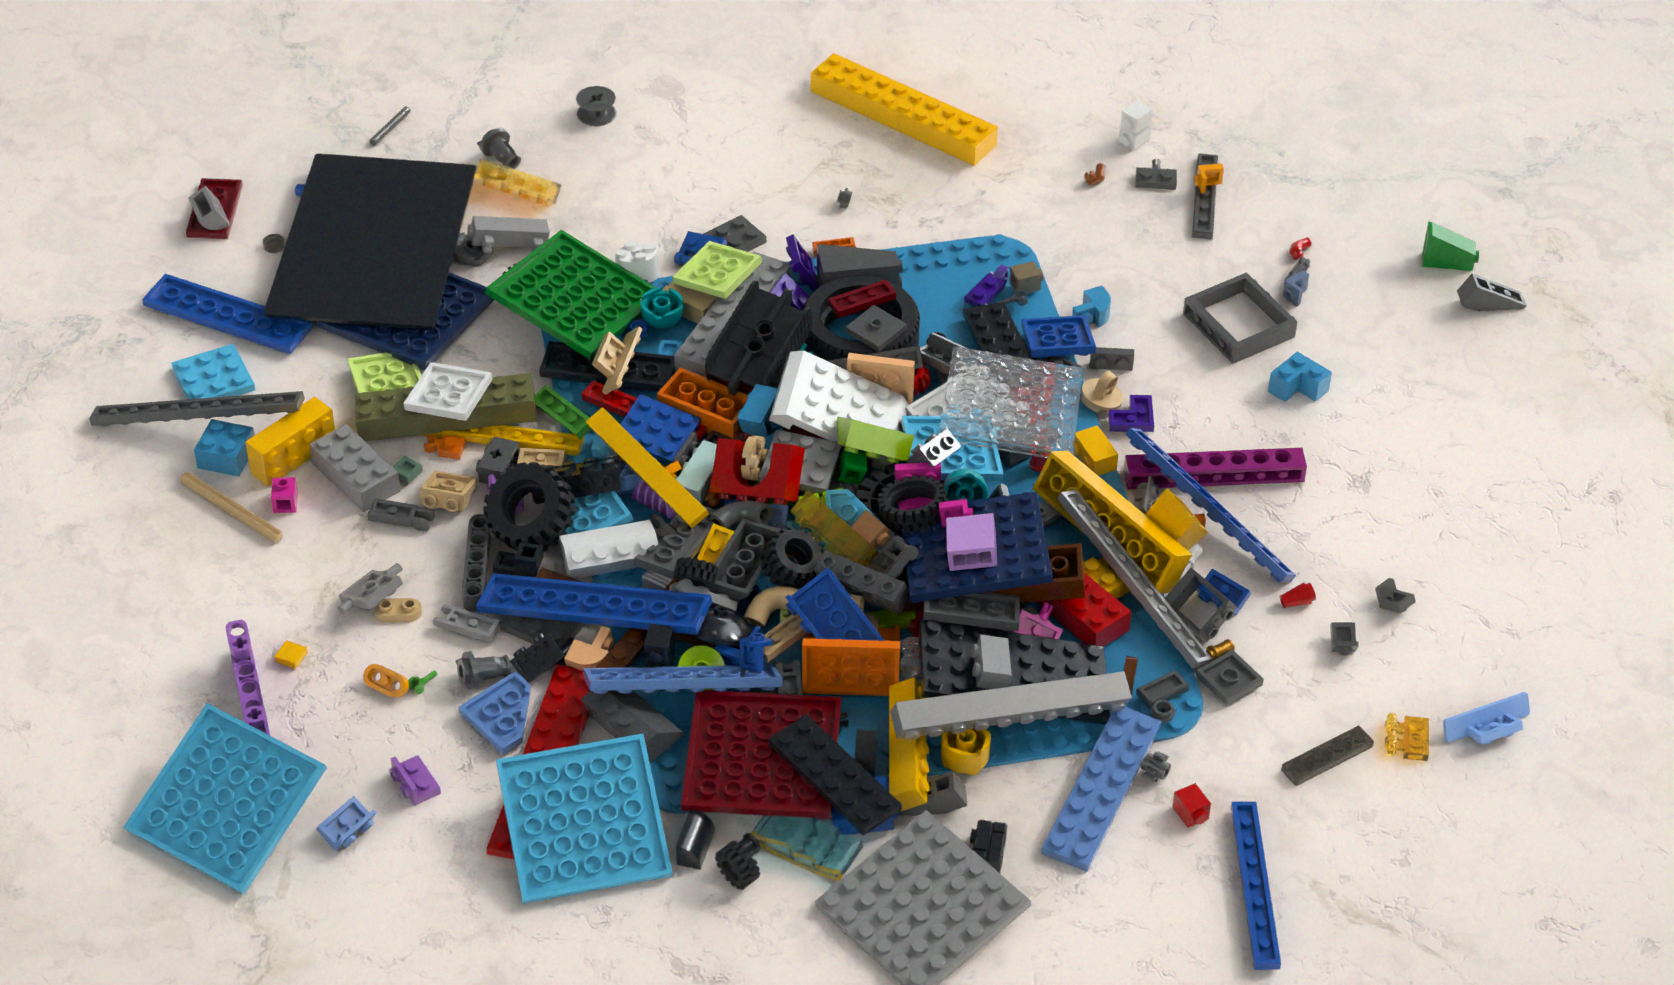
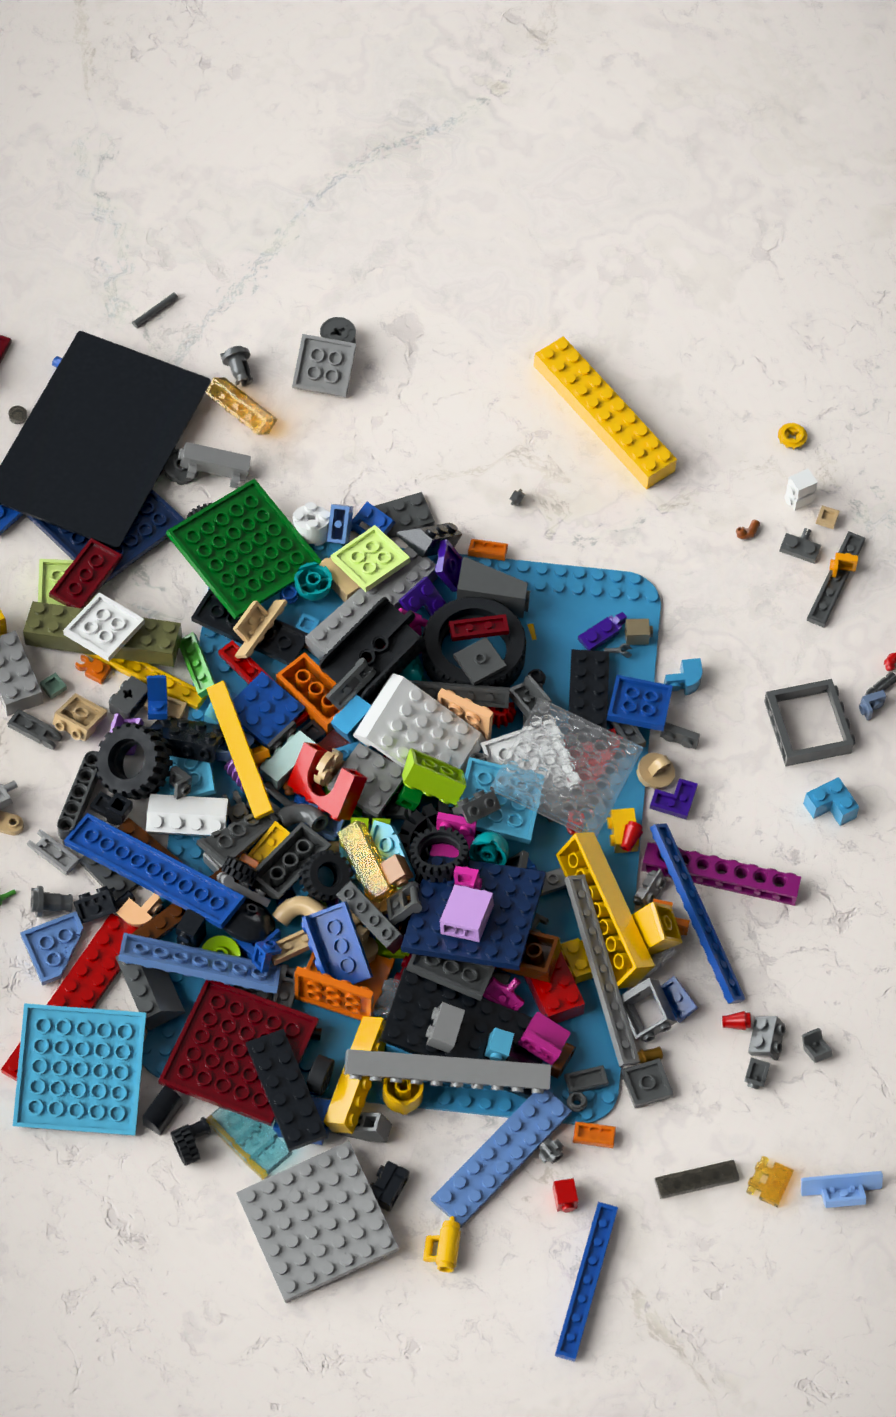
camera: 15 degrees right, 15 degrees up
(406, 358) = (86, 575): none -> dark red tile
(531, 442) = (157, 697): none -> blue bracket
(589, 514) = (181, 782): none -> dark grey bracket
(593, 129) = (324, 365): none -> light grey plate
(668, 253) = (340, 523): none -> medium blue brick
(747, 374) = (351, 684): none -> dark grey plate
(769, 241) = (427, 539): none -> black slope
(1056, 665) = (499, 1044): none -> medium azure brick
(1083, 889) = (447, 1247): none -> yellow piece
(1097, 88) = (793, 429): none -> yellow gear
(1101, 655) = (544, 1038): none -> dark pink bracket
(1108, 445) = (631, 835): none -> red cone
(1171, 146) = (827, 517): none -> tan plate
(1195, 740) = (594, 1134): none -> orange plate
(1336, 602) = (767, 1037): none -> dark grey bracket

